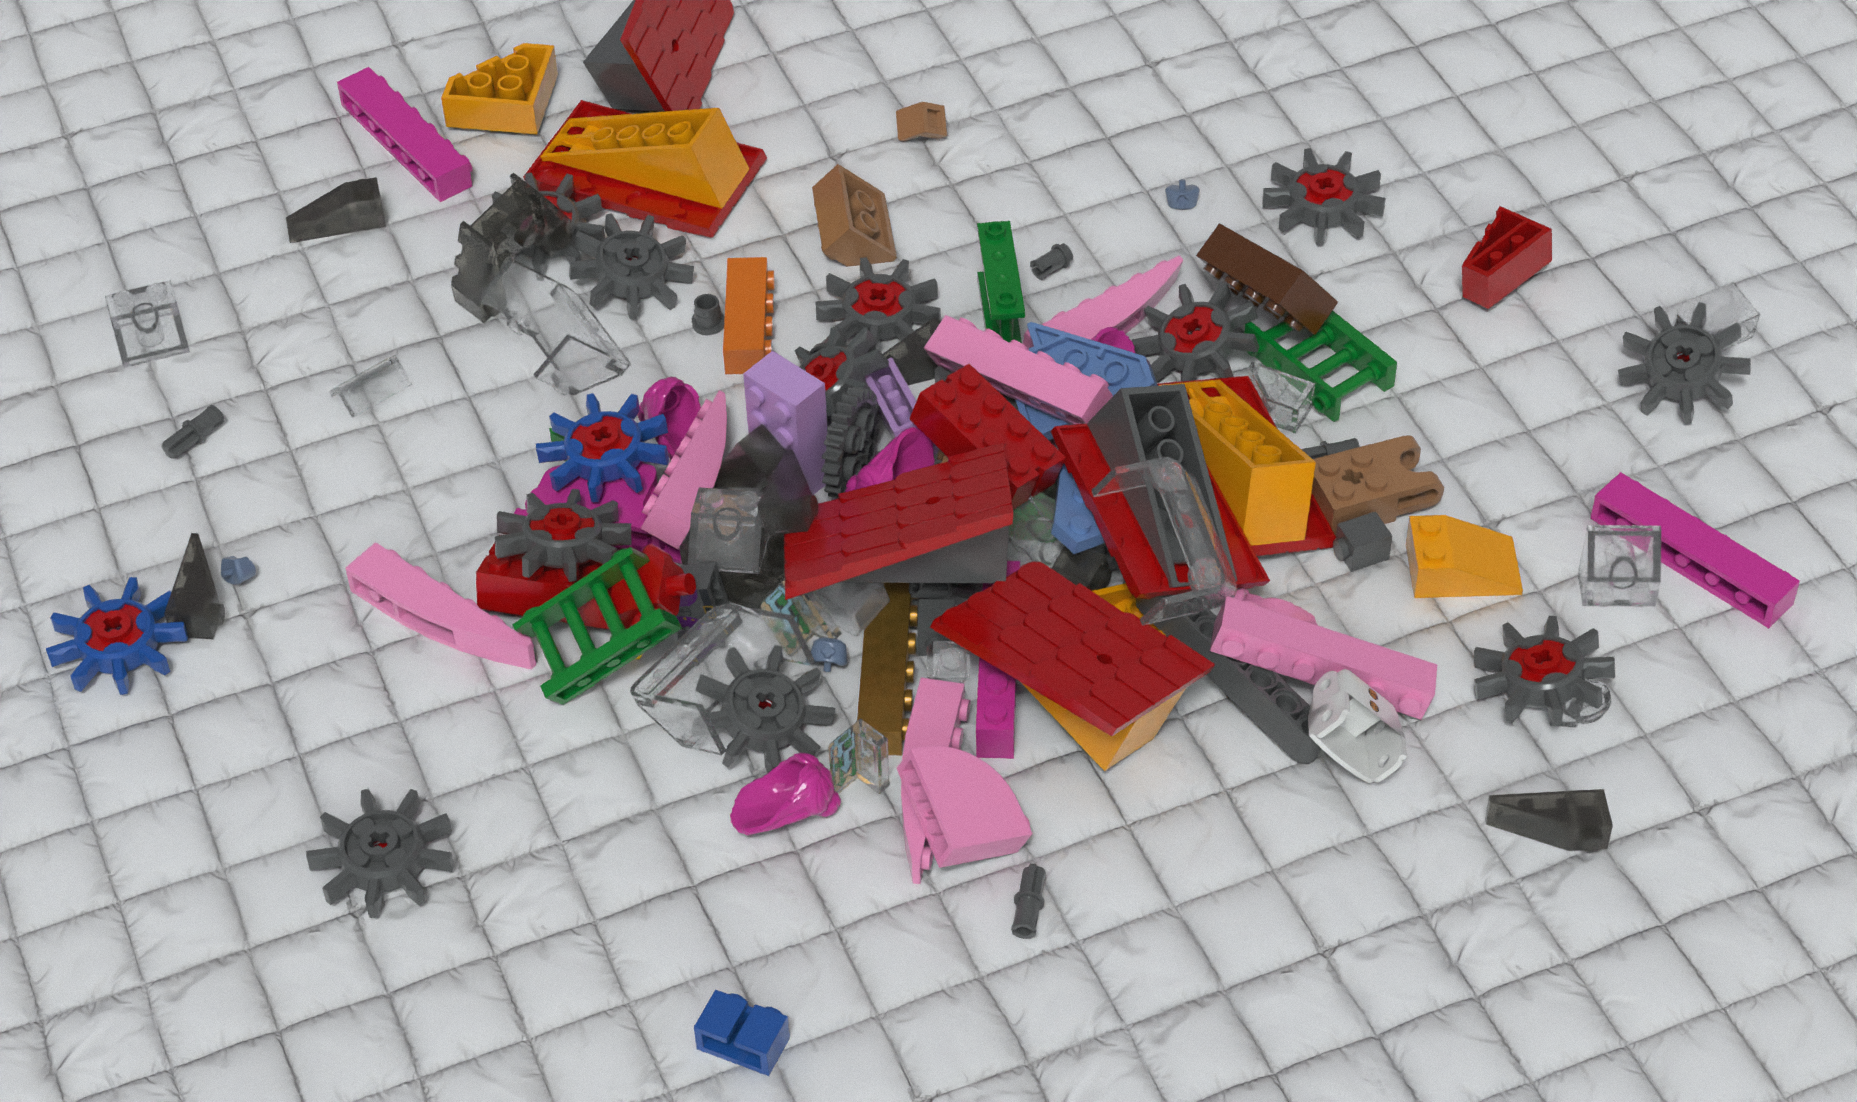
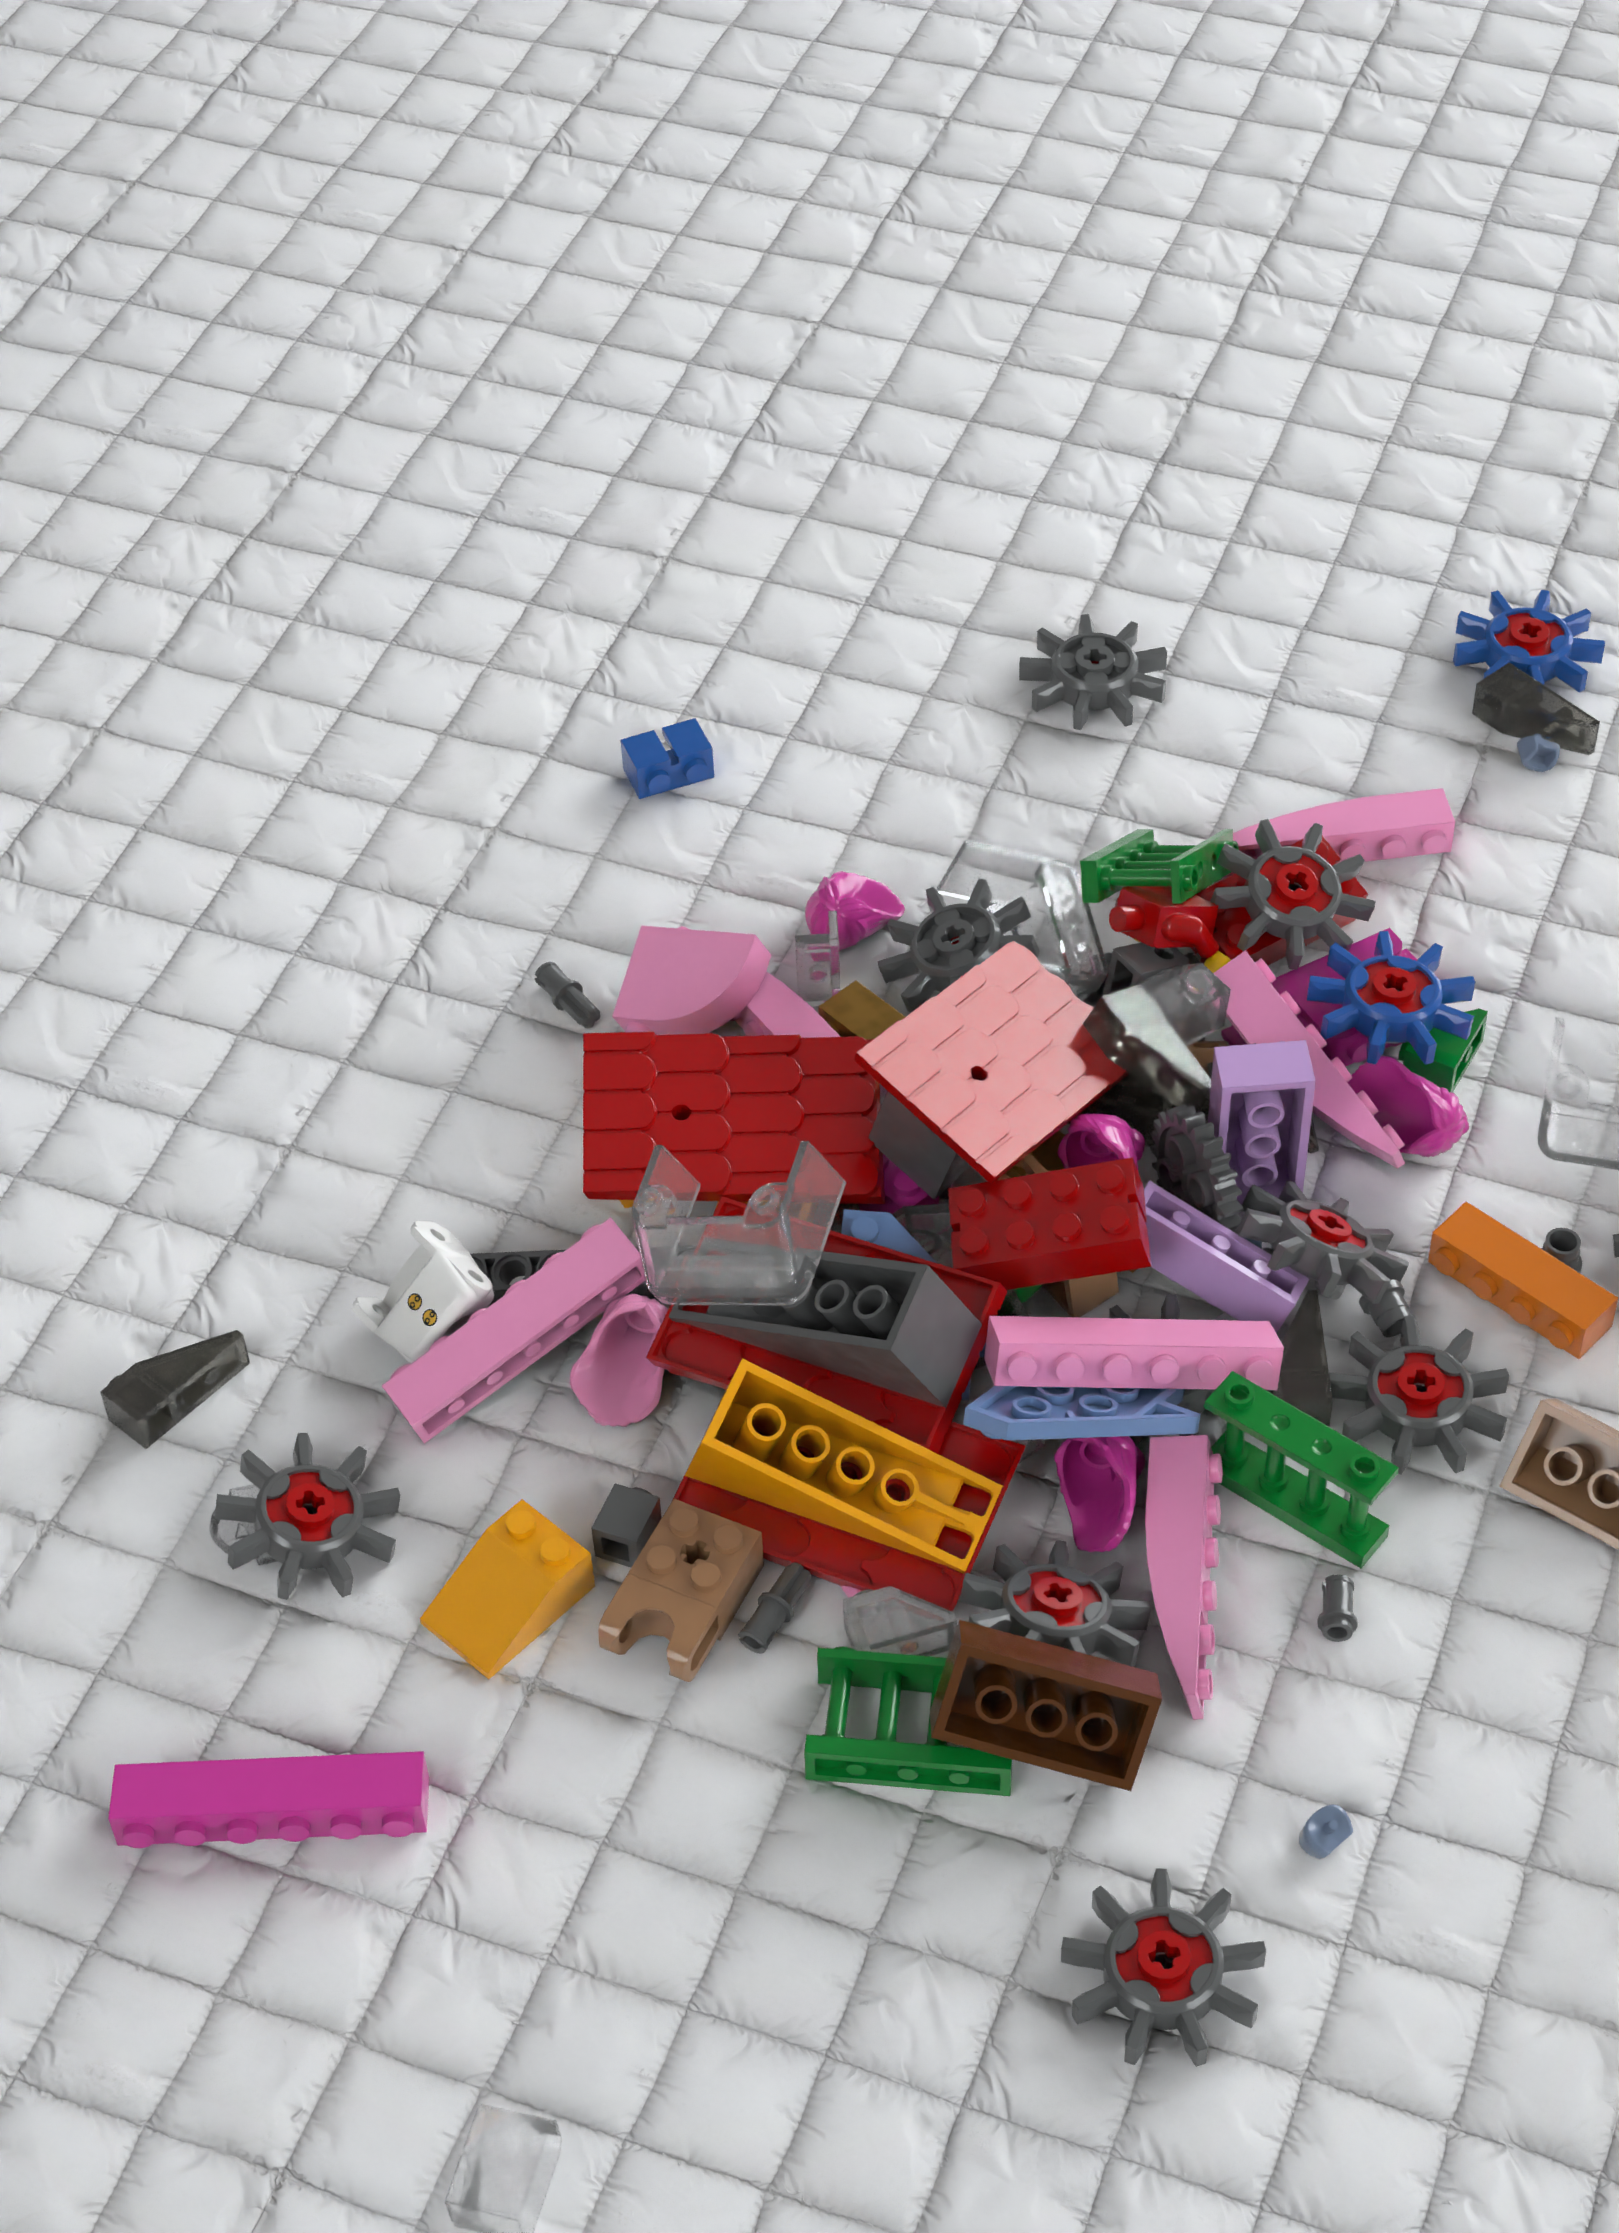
camera: 135 degrees right, 0 degrees up
(1505, 257) = (845, 2041): red wedge -> none
(1620, 565) = (325, 1692): clear slope -> none
(1684, 362) = (480, 2042): dark grey gear -> none

